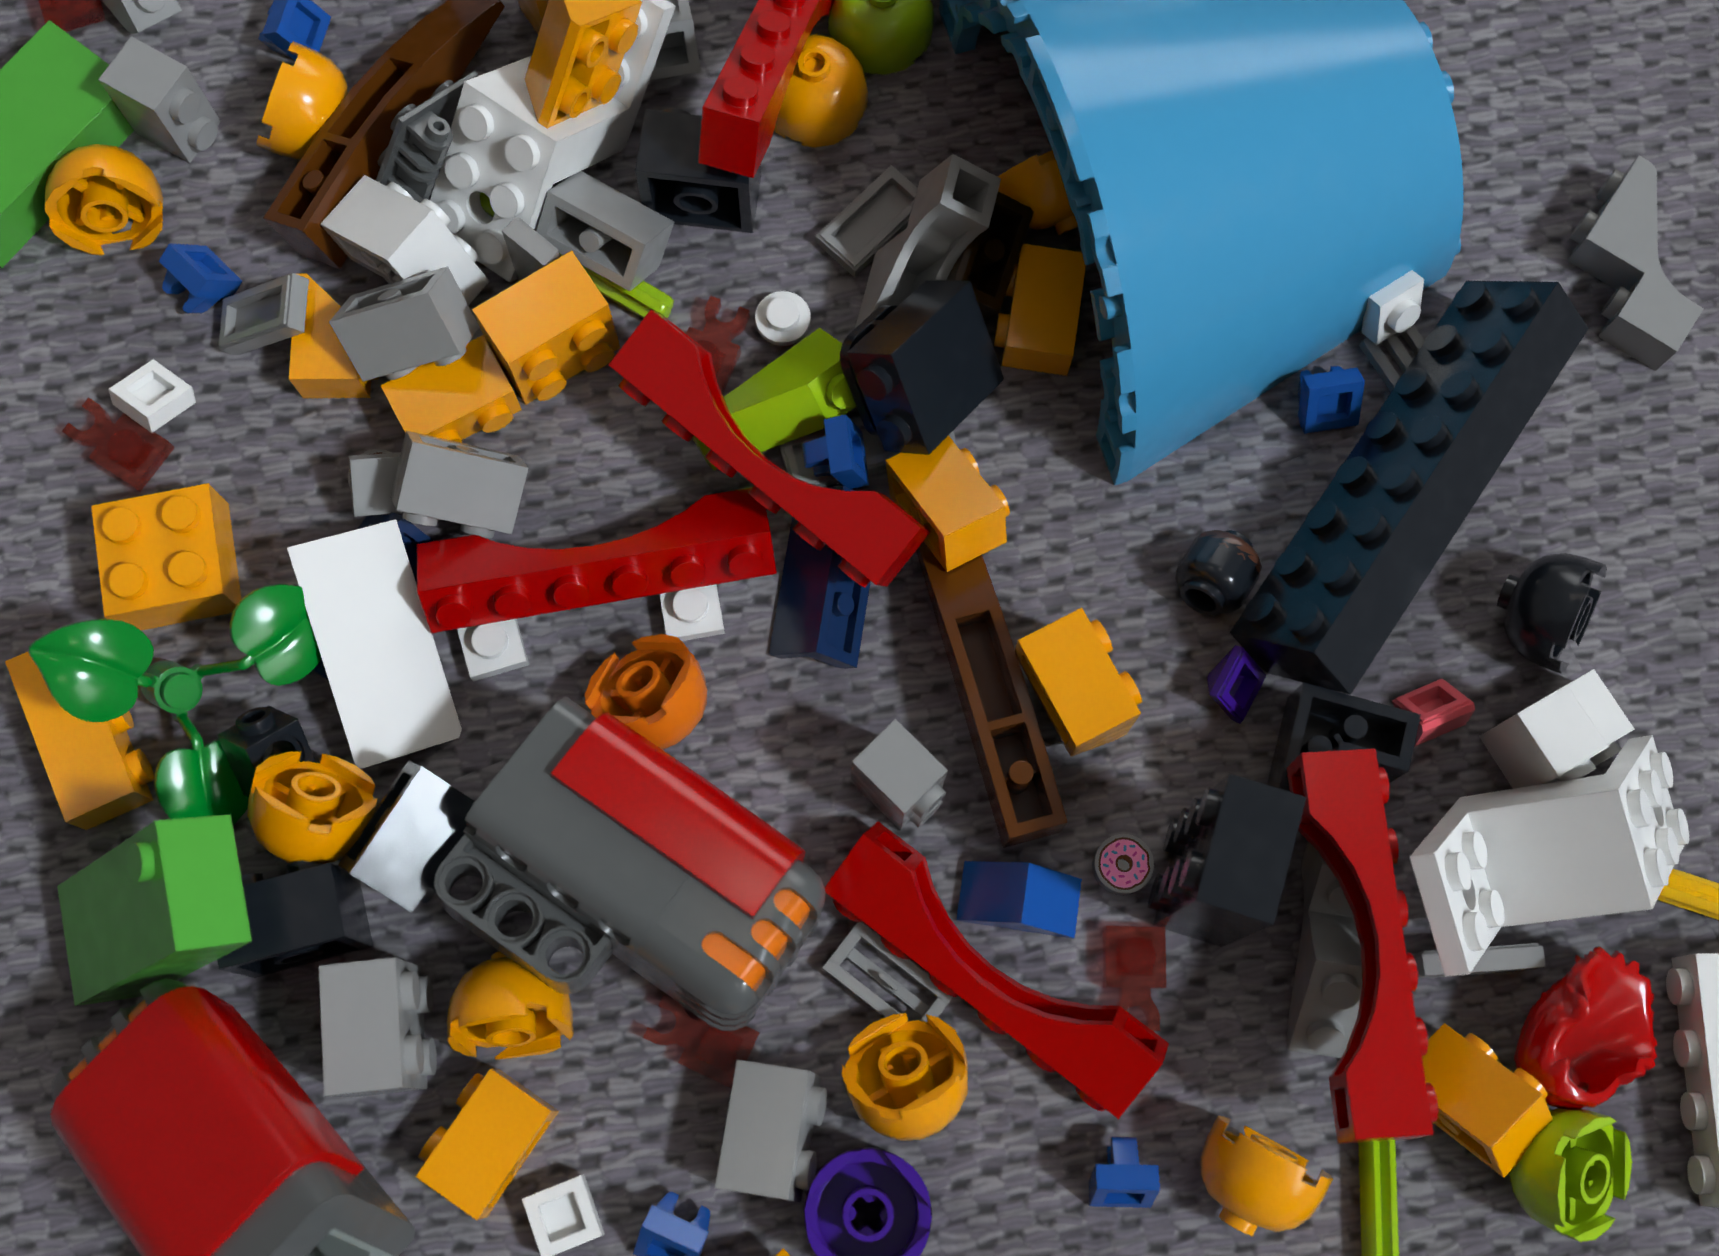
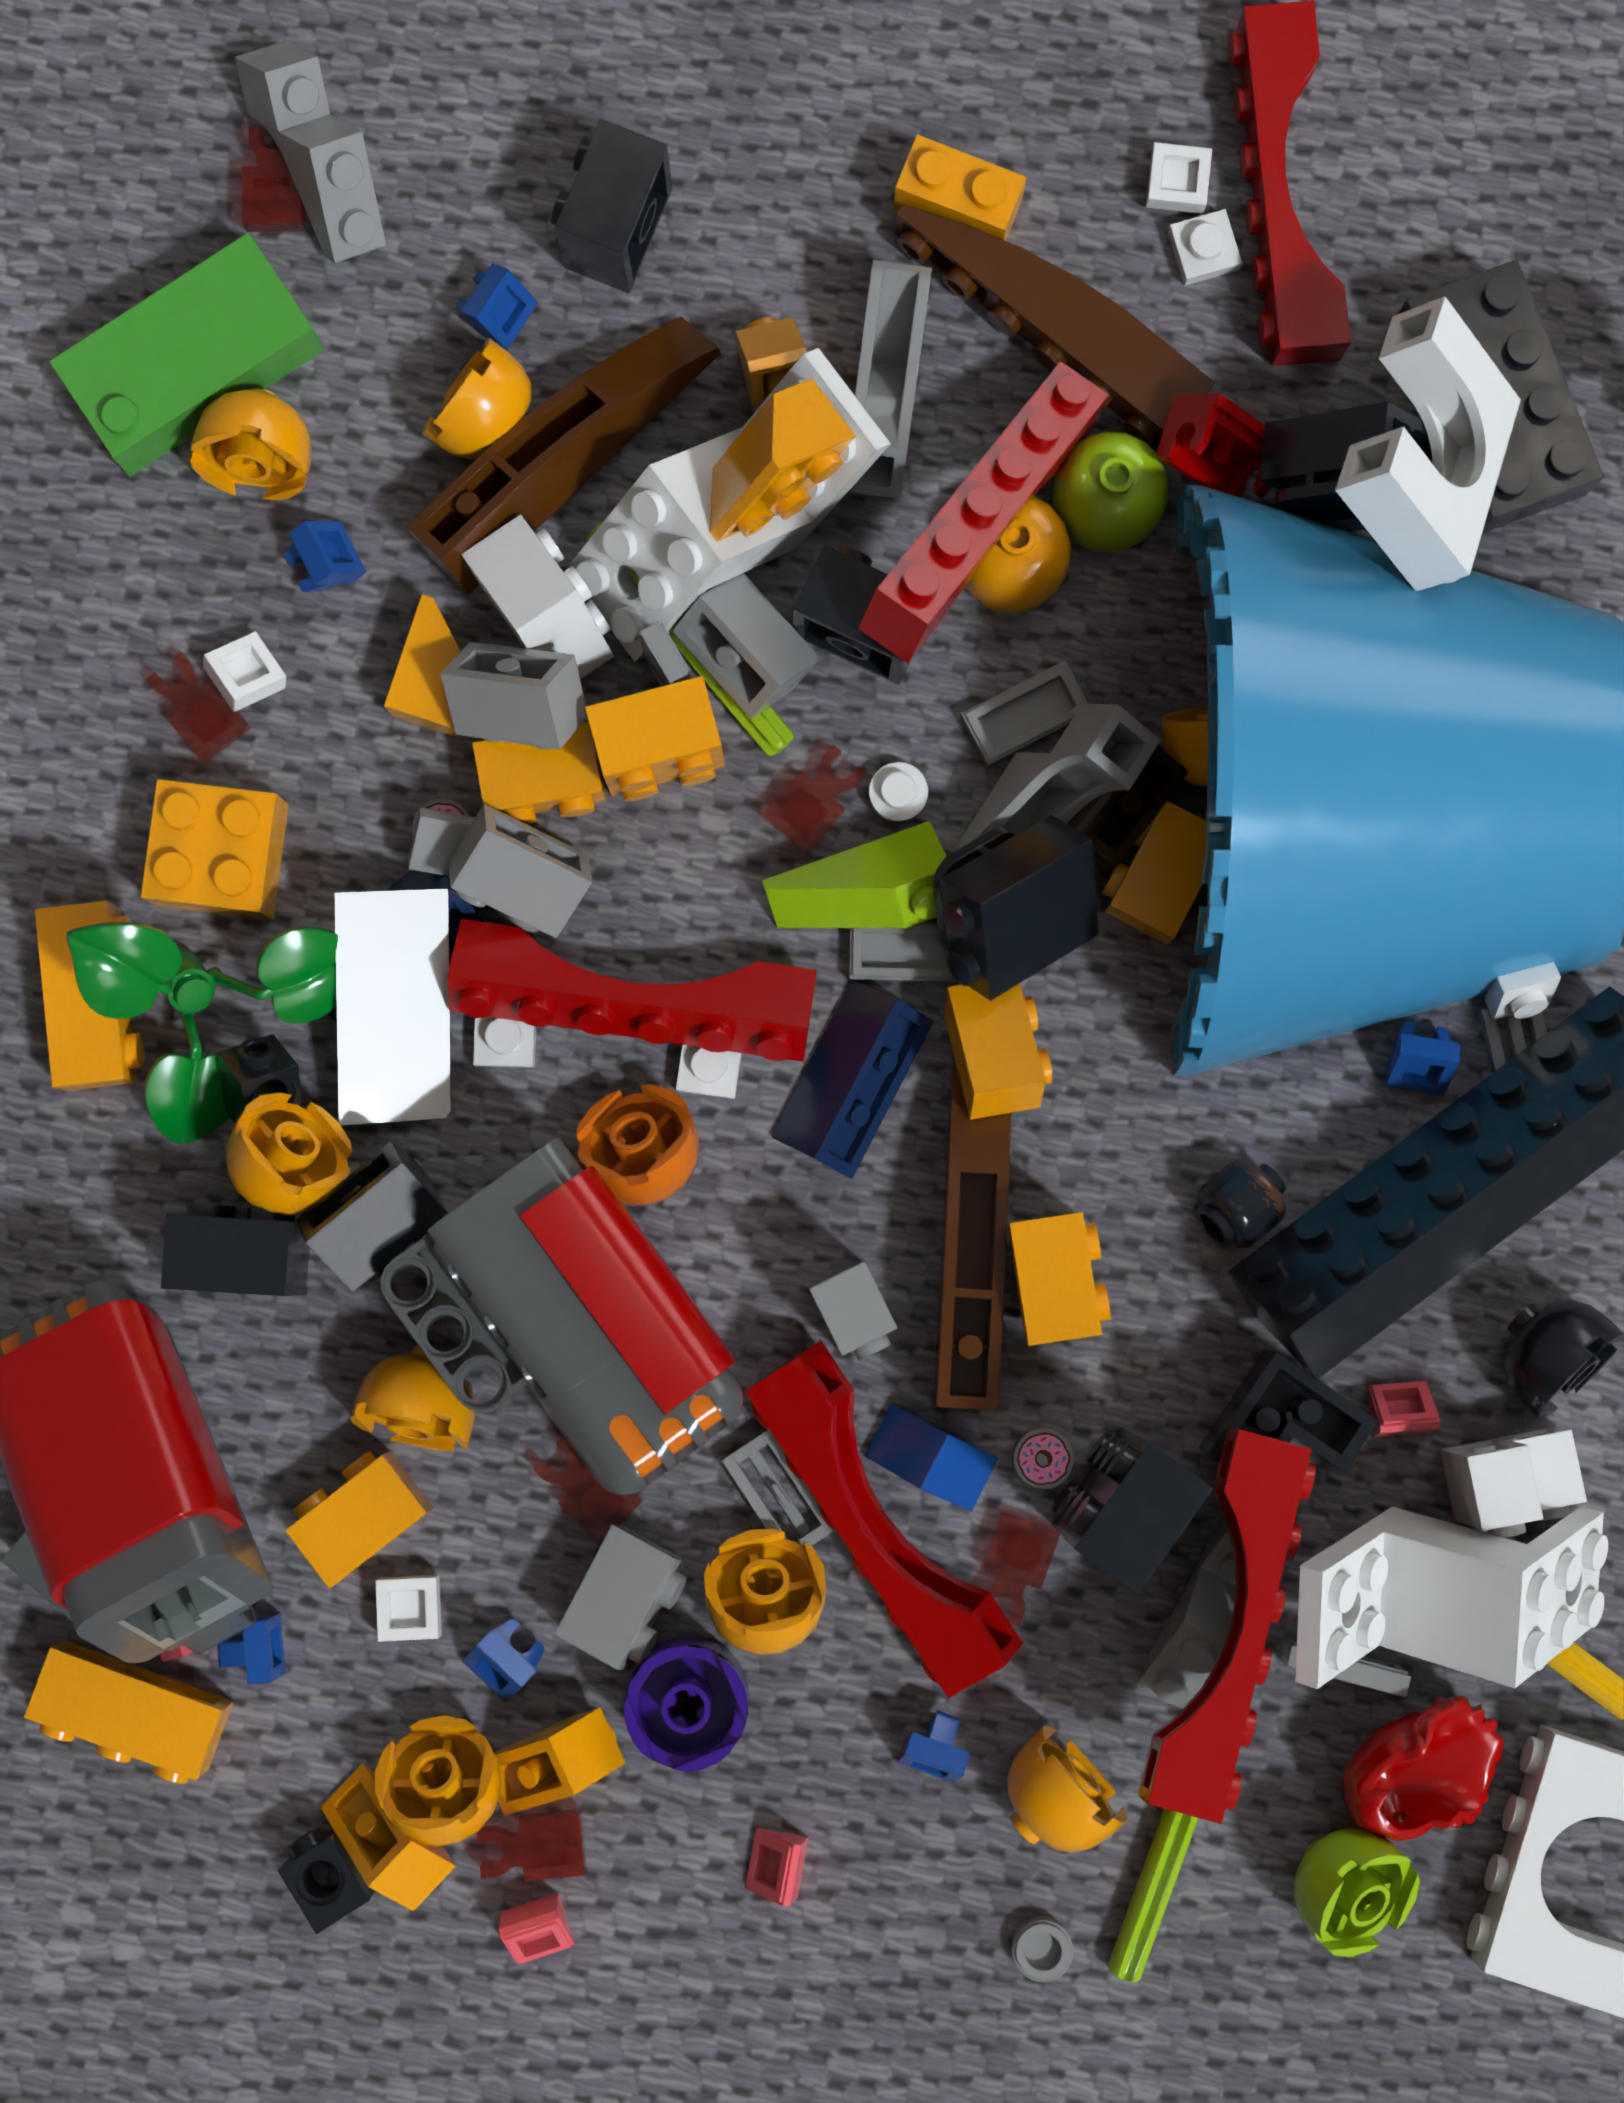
camera: 20 degrees right, 10 degrees up
(154, 908) = (115, 1213): bright green brick -> none
(161, 100) = (338, 359): light grey brick -> none
(264, 314) = (378, 625): light grey tile -> none
(375, 1027) = (287, 1383): light grey brick -> none
(421, 141) = (587, 499): dark grey hinge -> none
(679, 377) = (768, 841): red arch -> none
(838, 453) = (907, 963): blue tile -> none
(1235, 683) = (1216, 1319): dark purple slope -> none
(1482, 1101) = (1291, 1796): light orange brick -> none

